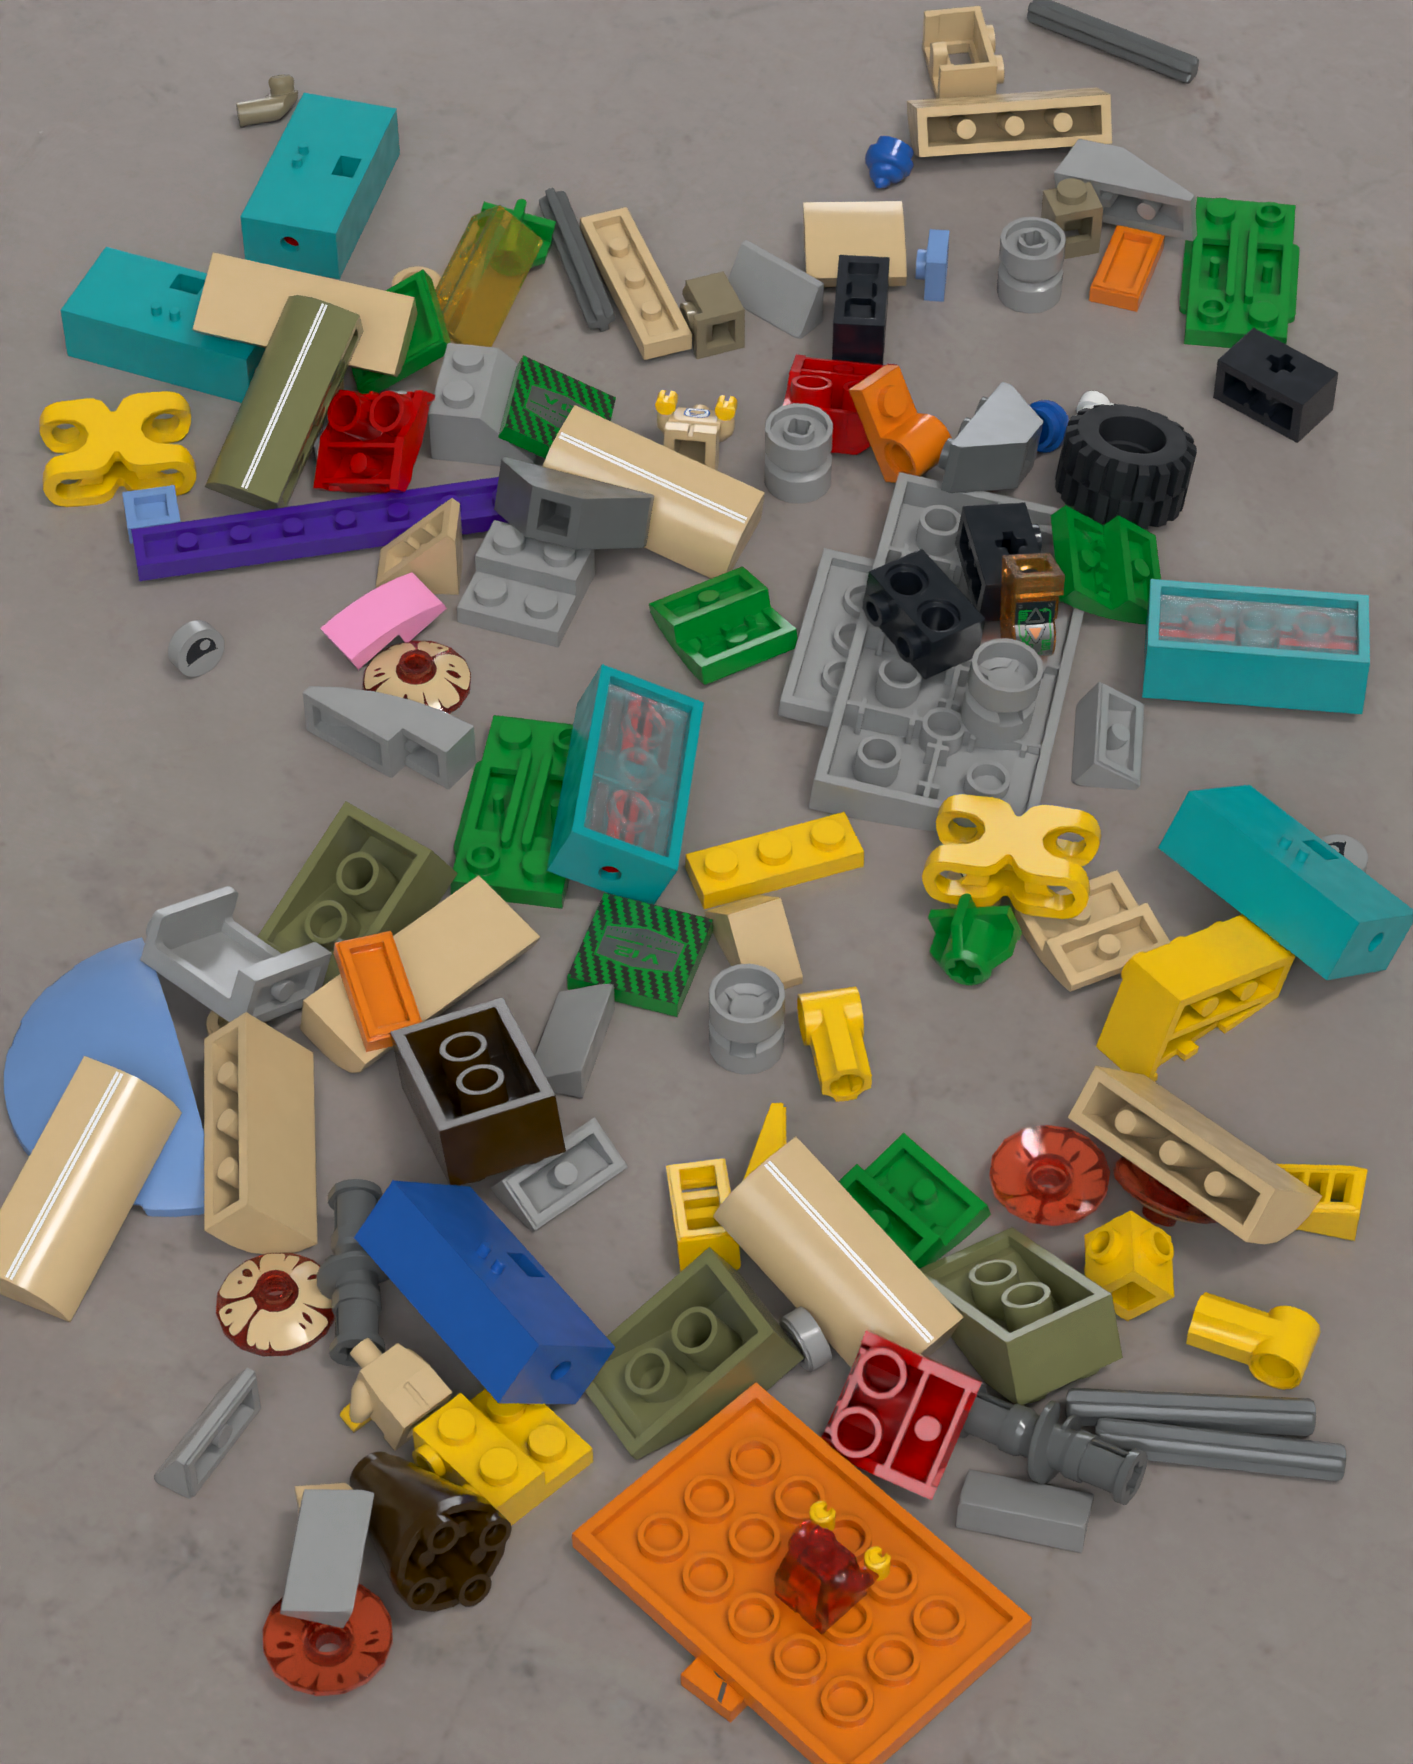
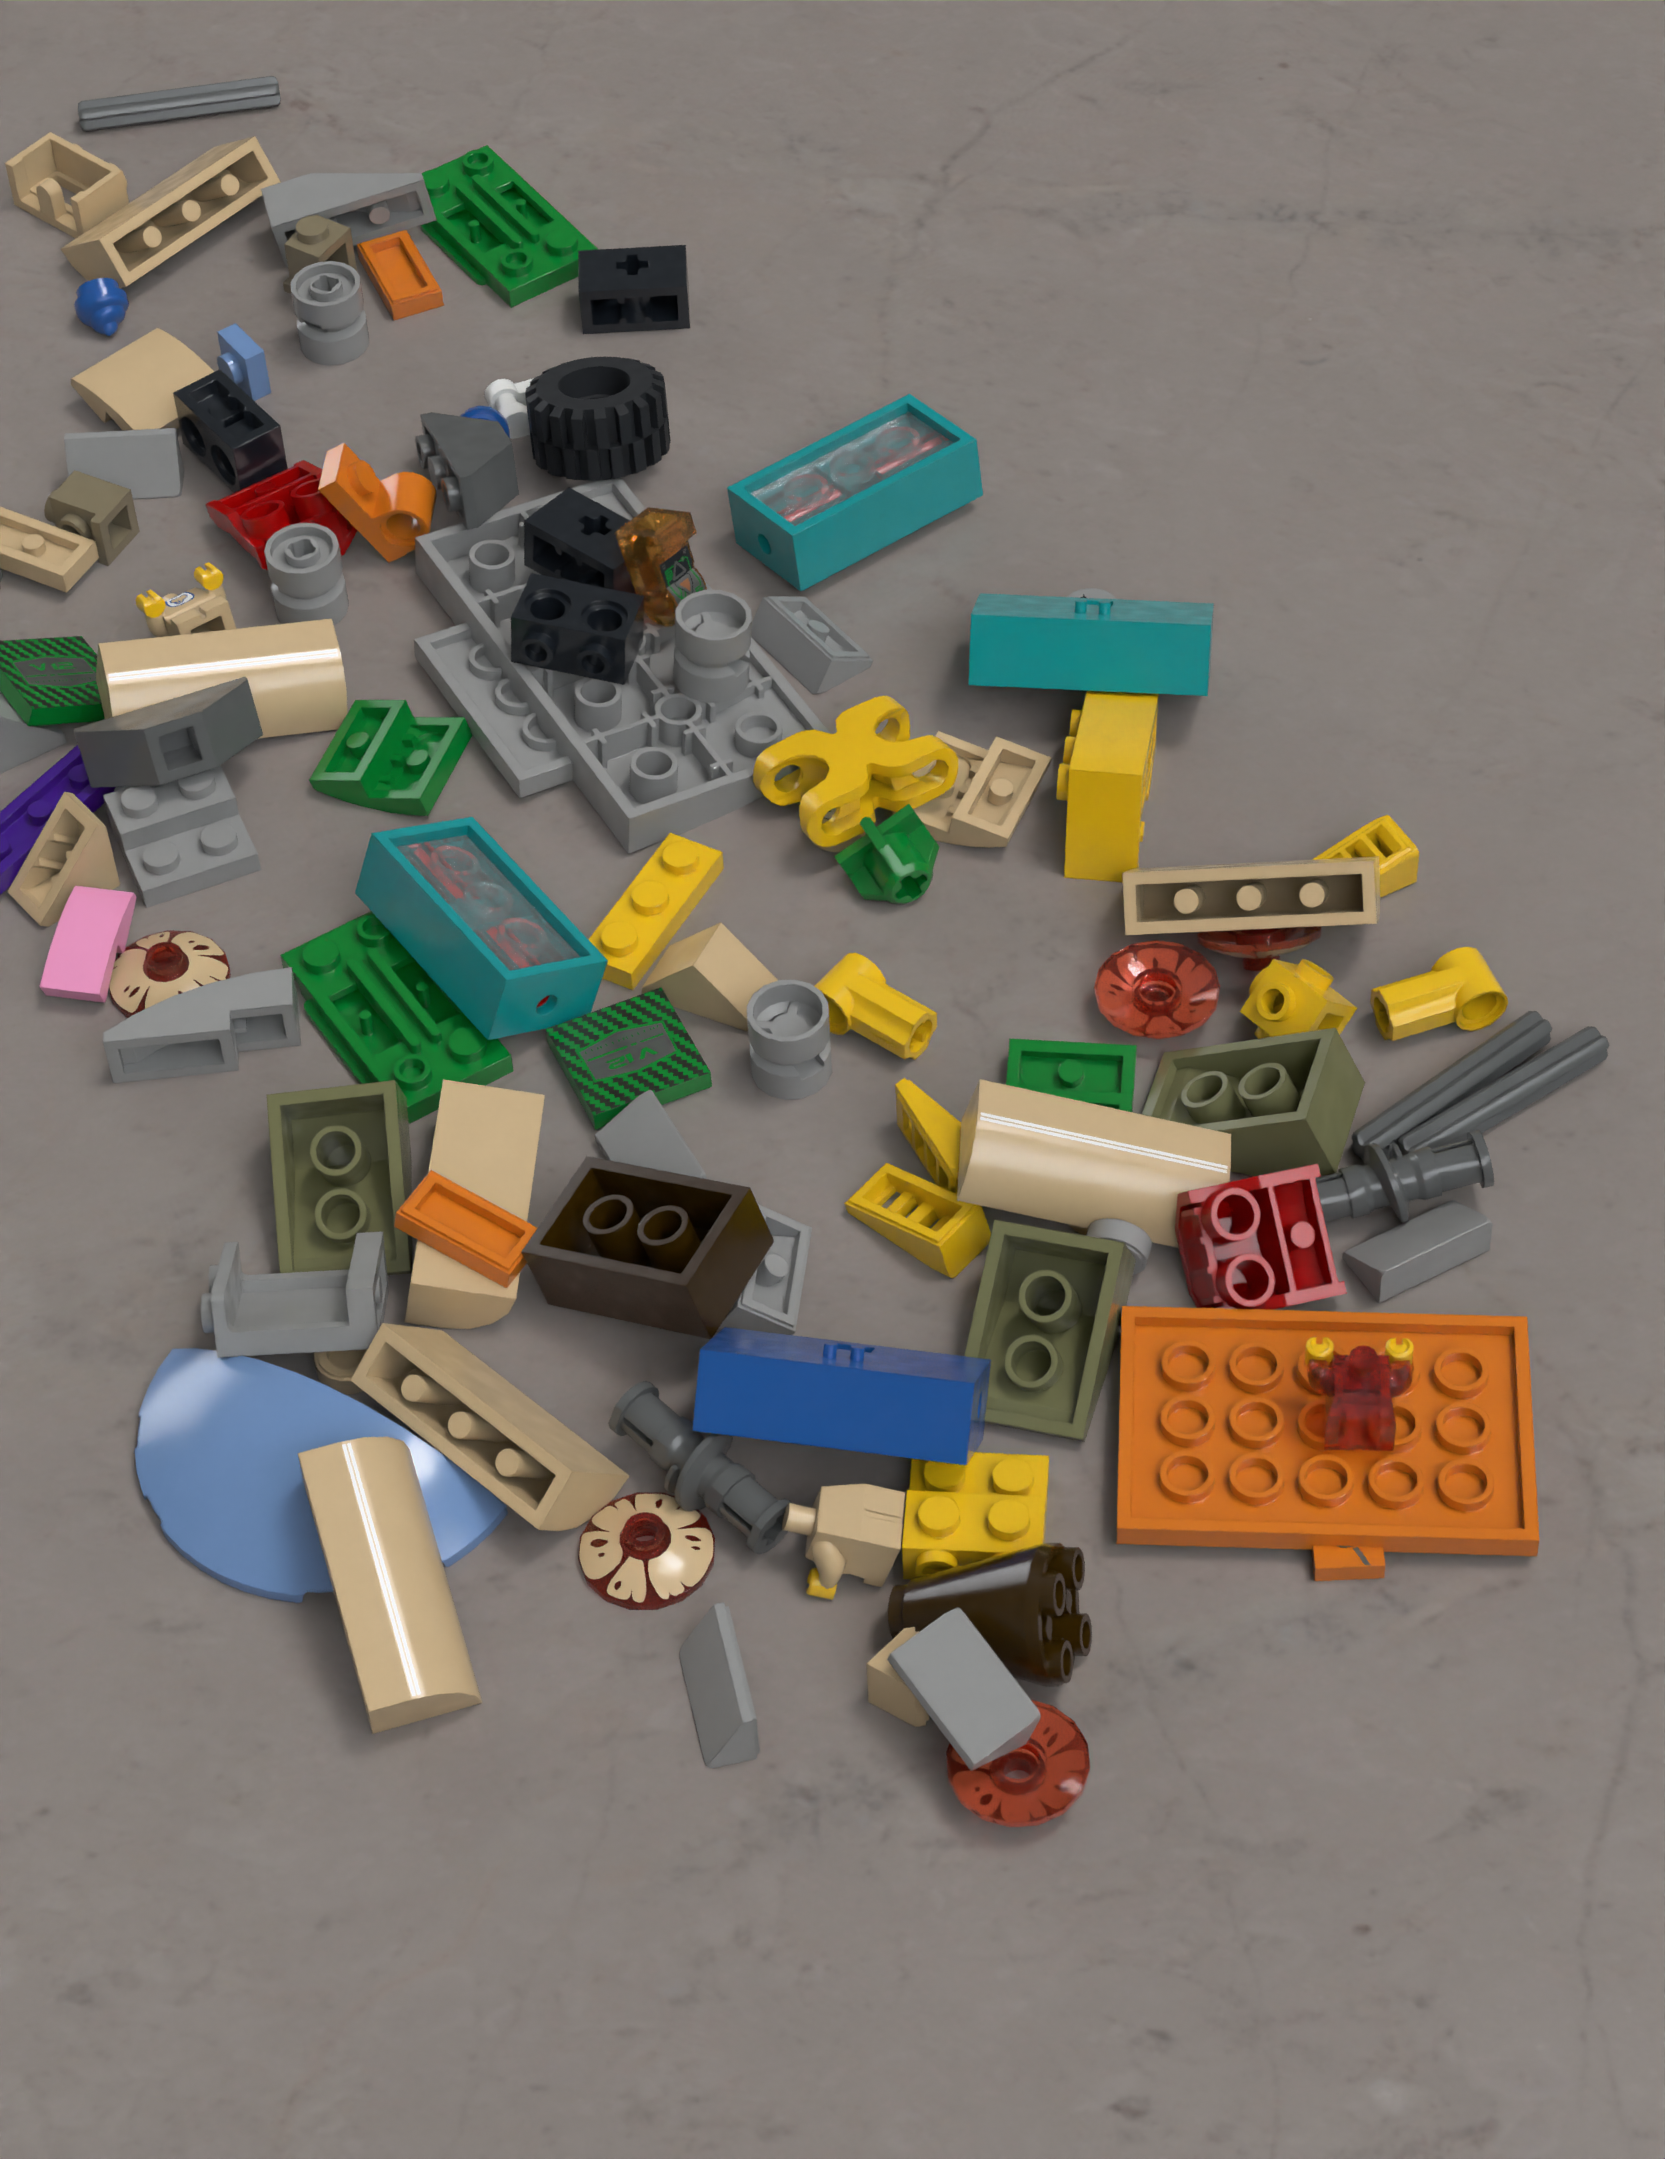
camera: 40 degrees left, 0 degrees up
(1105, 565) = (665, 487): green slope -> none

